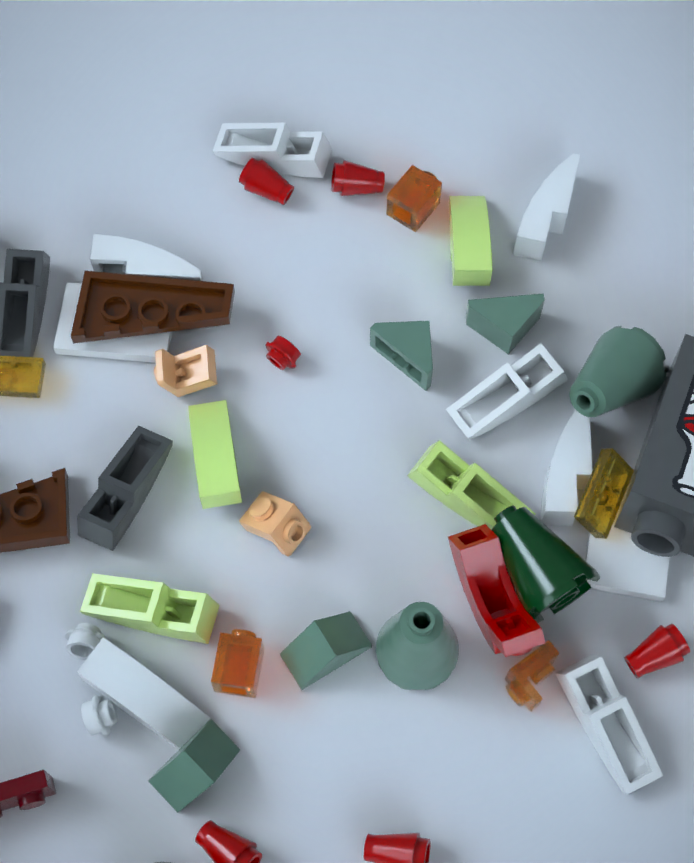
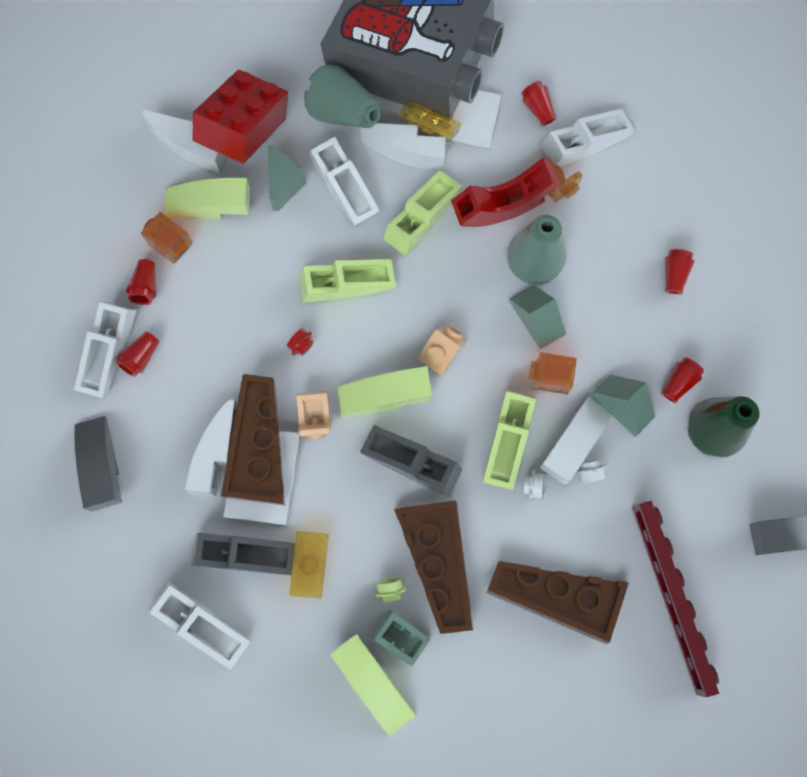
camera: 90 degrees left, 10 degrees up
(134, 151) = (96, 464): none -> dark grey slope
(368, 402) = (346, 279): none -> yellowish green slope
(406, 347) = (305, 246): sand green slope -> none
(540, 563) = (487, 162): dark green cone -> none
(580, 258) = (239, 116): none -> red brick

